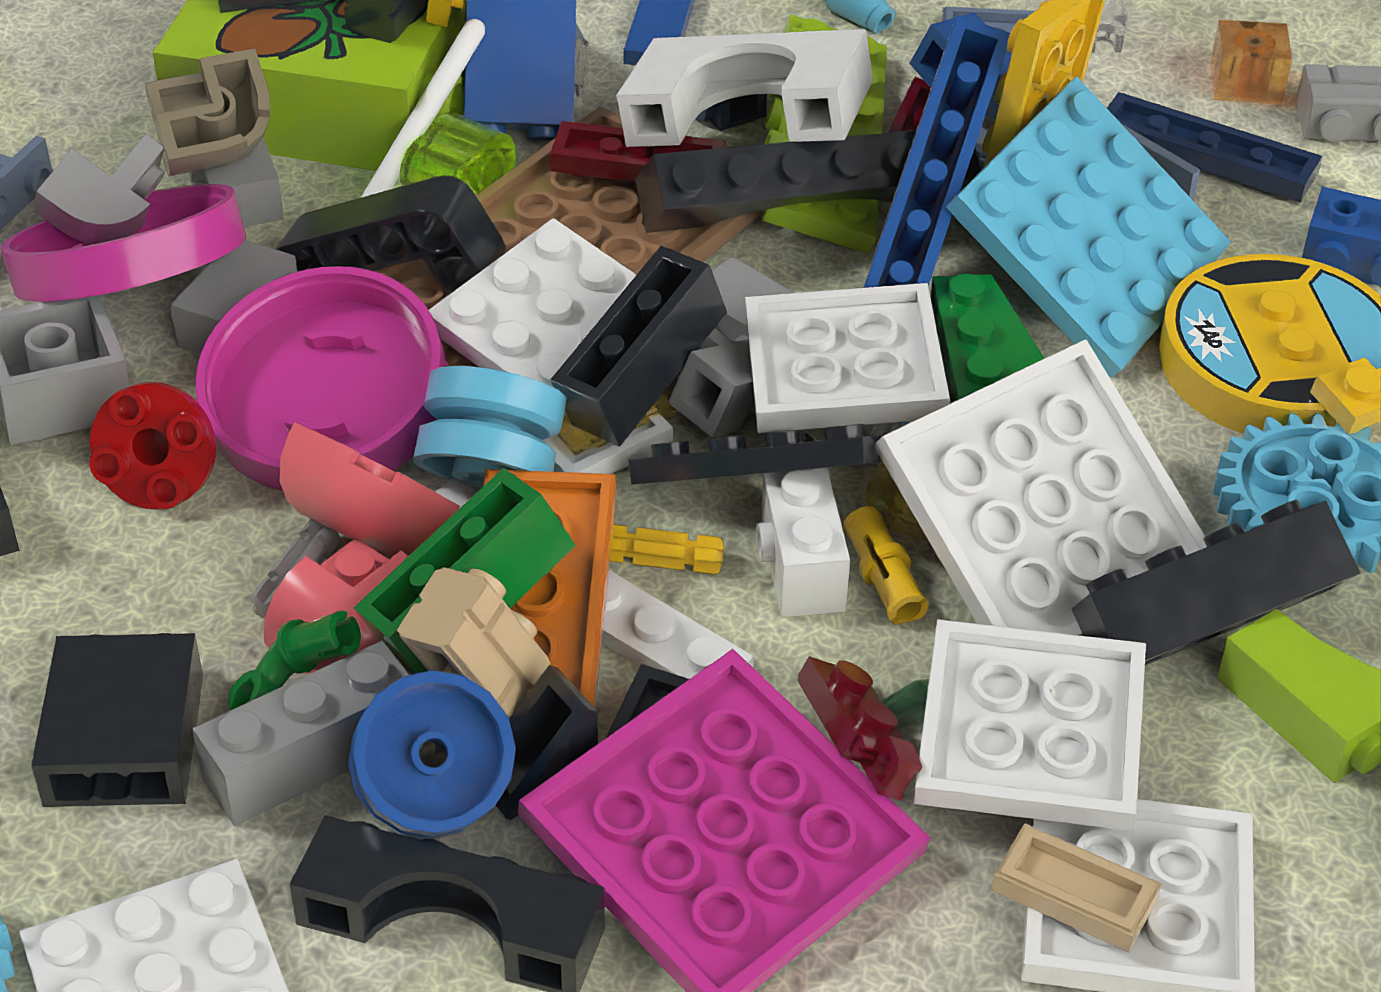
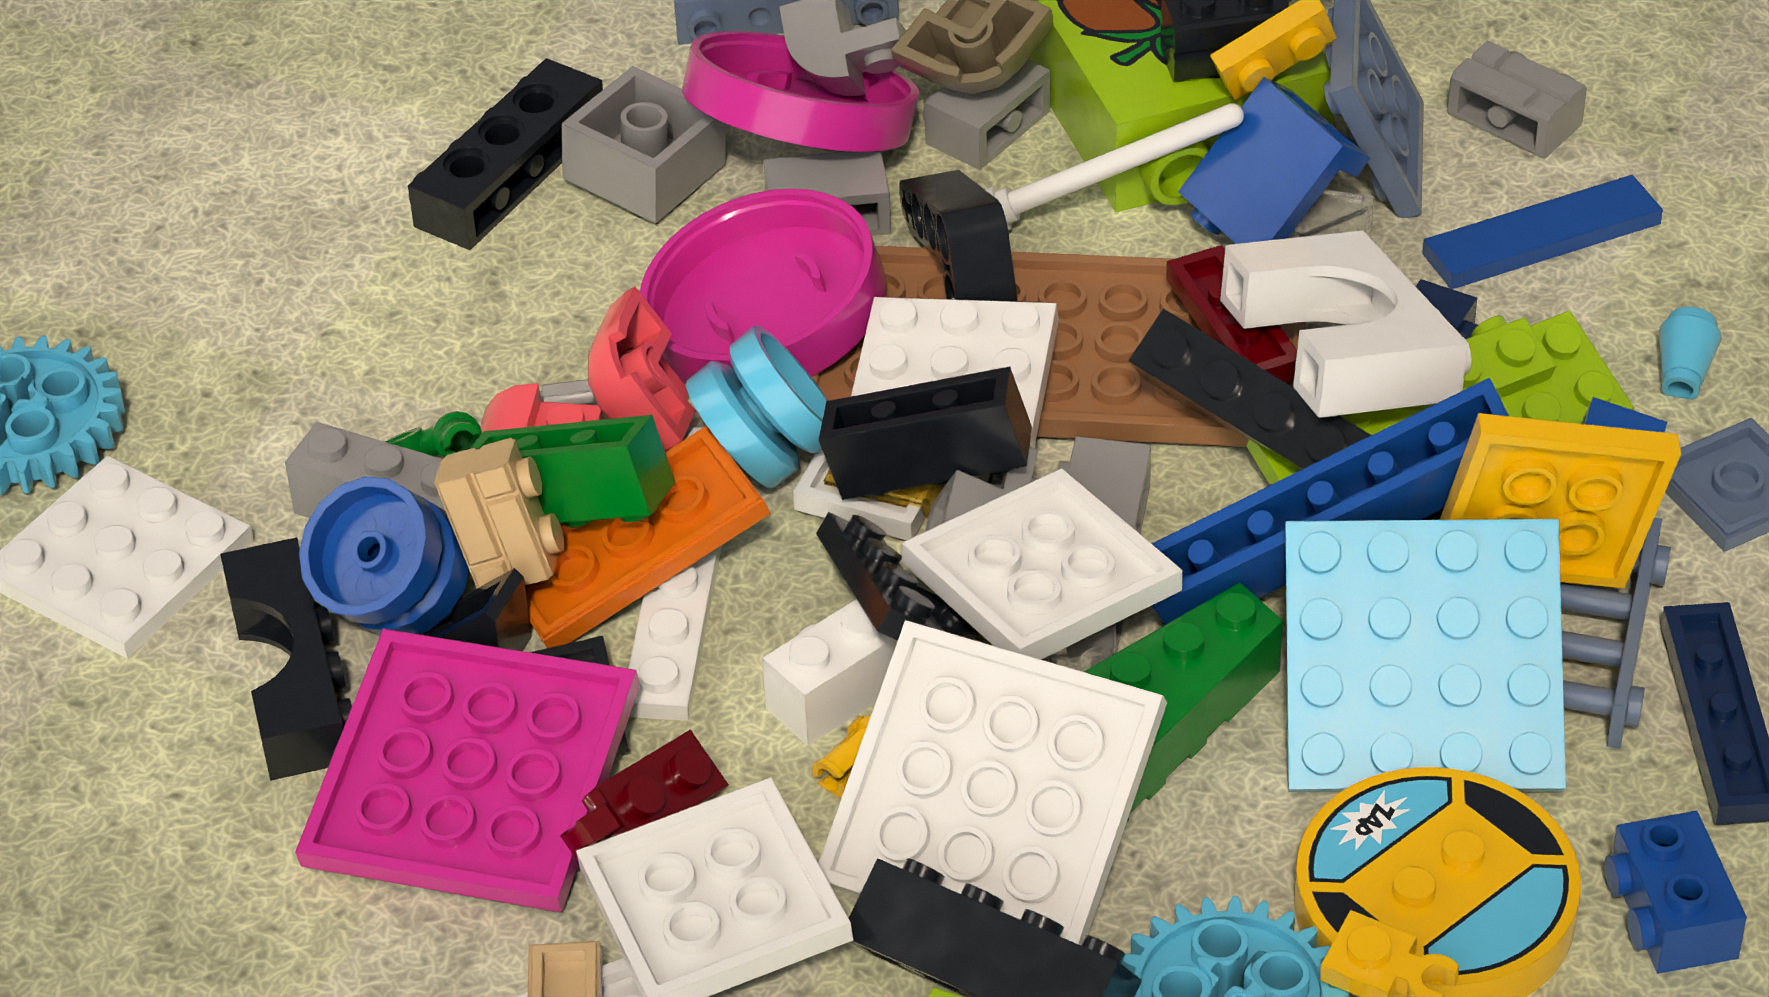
camera: 60 degrees right, 0 degrees up
(118, 720) = (331, 375): black brick -> none
(152, 445) = (606, 243): red plate -> none
(461, 150) = (1118, 214): clear neon green piece -> none
(667, 549) = (771, 591): yellow axle -> none

